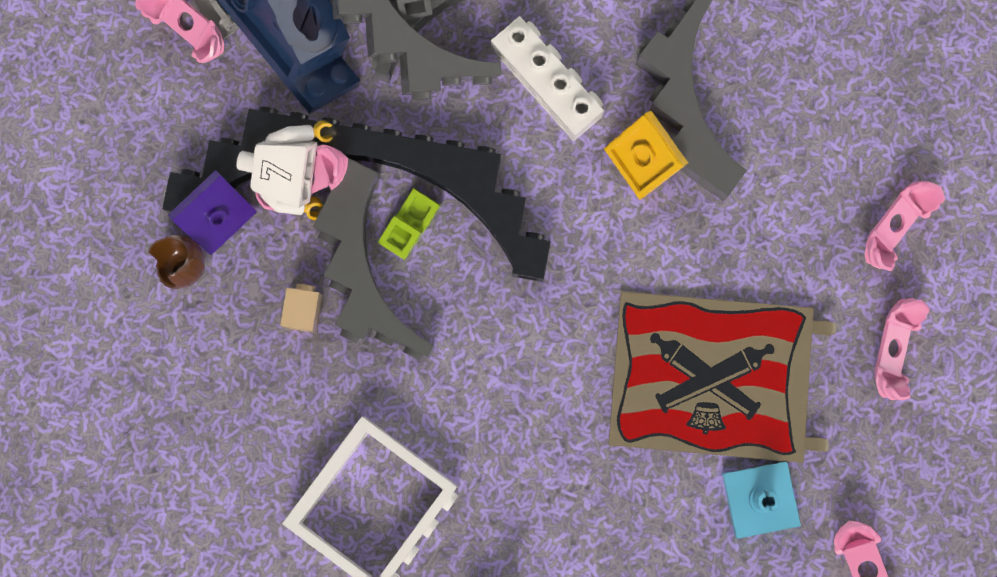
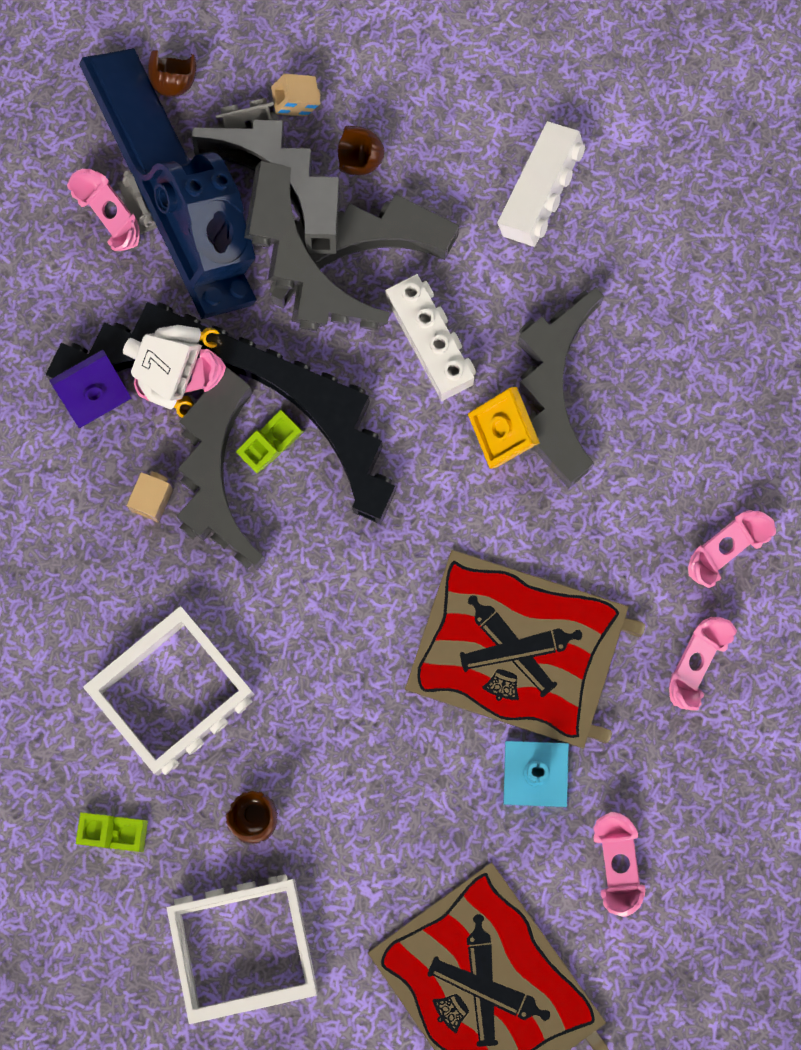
camera: 15 degrees right, 5 degrees down
(178, 261) = (48, 425): reddish brown hair -> none

